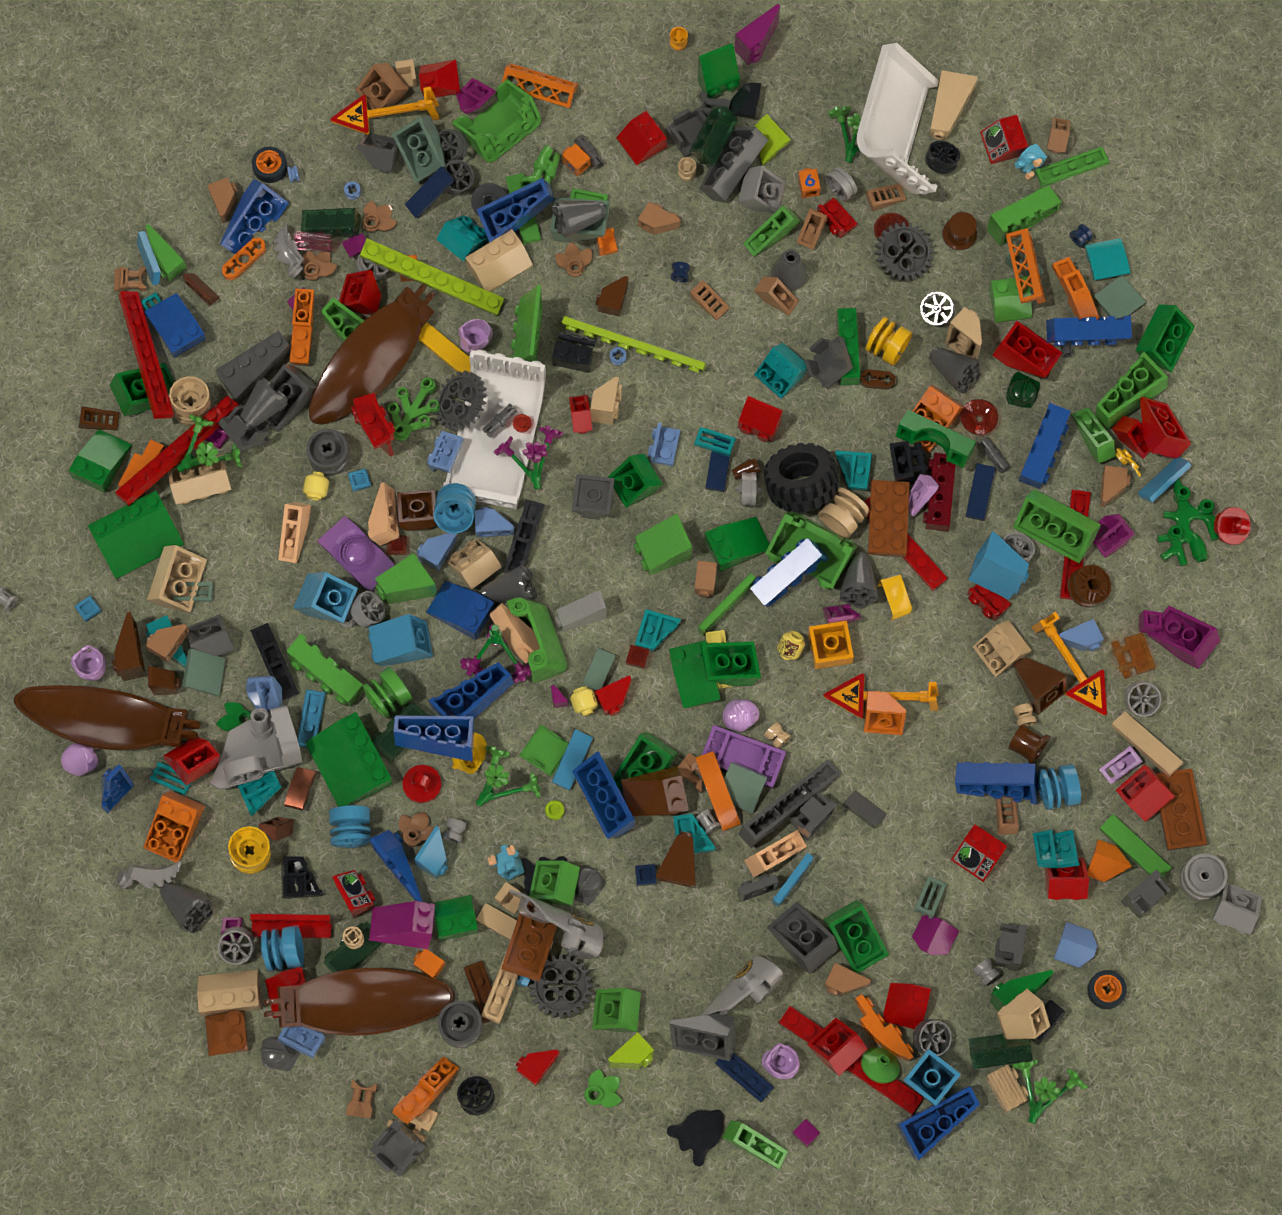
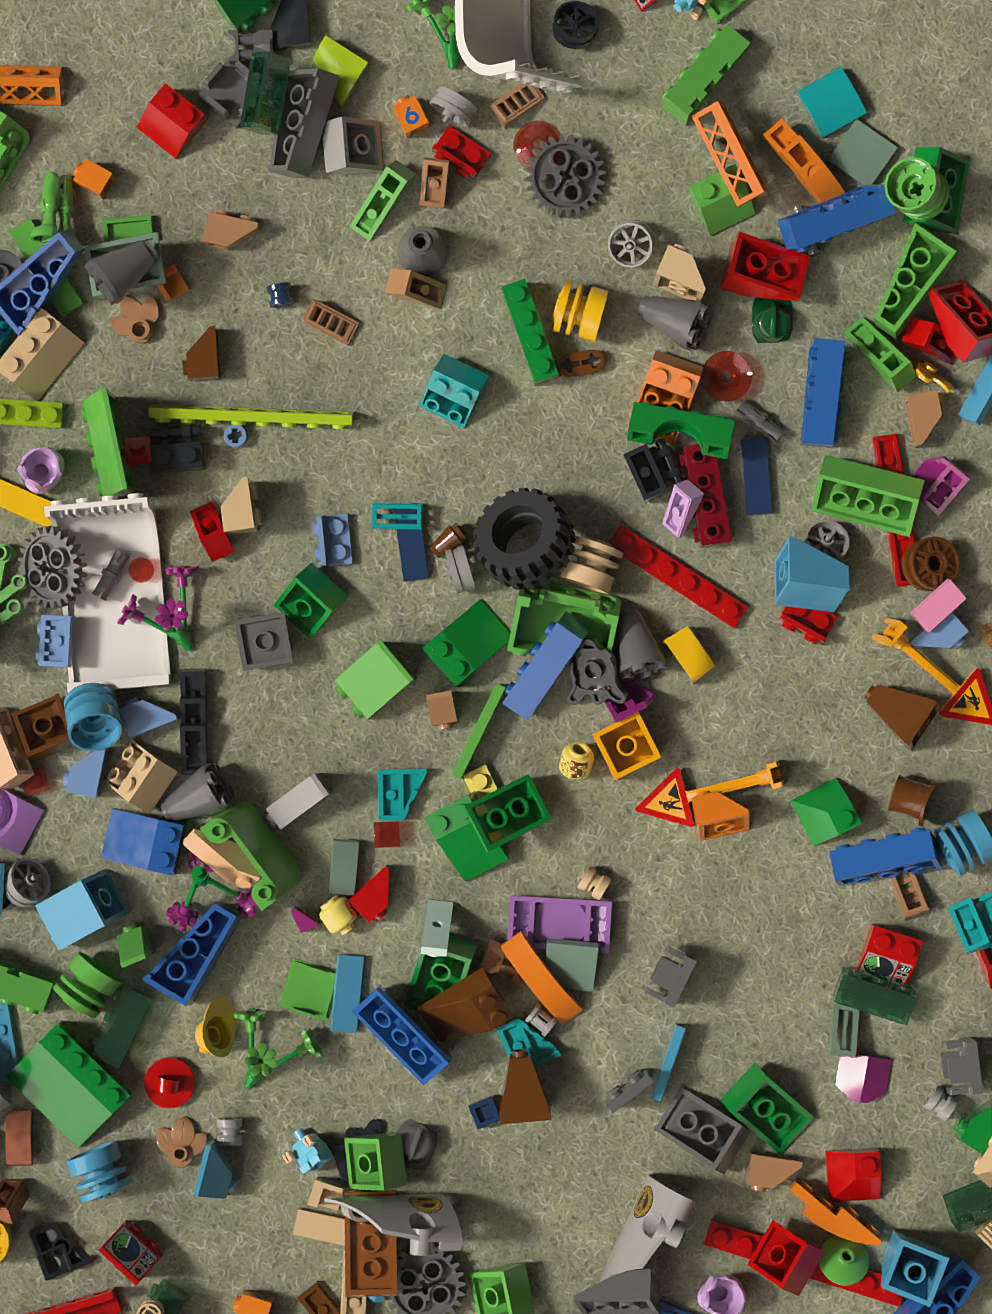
camera: 10 degrees left, 15 degrees up
(390, 850) = (162, 1186): blue wedge -> none
(403, 924) = (205, 1274): magenta slope -> none
(405, 582) = (61, 832): bright green slope -> none
(430, 677) = (134, 945): none -> bright green slope
(436, 734) = (169, 1027): blue wedge -> none
(455, 918) = (266, 1240): green slope -> none
(546, 343) = (138, 451): none -> red bracket
(554, 810) = (345, 1064): lime tile -> none
(590, 150) = (107, 160): dark grey pin -> none
(653, 728) = (437, 928): none -> light aqua tile
(686, 168) = (241, 142): tan wheel -> none
(740, 714) = (539, 870): lavender hair -> none
(759, 419) = (445, 471): red slope -> none
(775, 853) = (636, 1036): light nougat slope -> none
(788, 804) = (635, 967): dark grey slope -> none
(823, 588) = (595, 674): none -> black tile
(830, 361) = (513, 362): dark grey panel -> none
(855, 468) = (588, 496): teal wing -> none
(864, 809) = (730, 941): dark grey slope -> none
(888, 518) = (650, 552): dark orange plate -> none
(932, 1037) = (897, 1207): dark grey wheel -> none
(960, 231) = (628, 124): reddish brown piece -> none
(960, 877) = (875, 995): none -> clear green brick
(962, 738) = (825, 812): none -> green slope
(1001, 648) = (843, 679): tan slope -> none
(1024, 715) = (899, 764): tan wheel -> none
(1081, 235) = (788, 79): dark blue wheel -> none
(1086, 613) = (938, 605): none -> bright pink tile
(1151, 324) = (904, 187): none -> bright green wheel

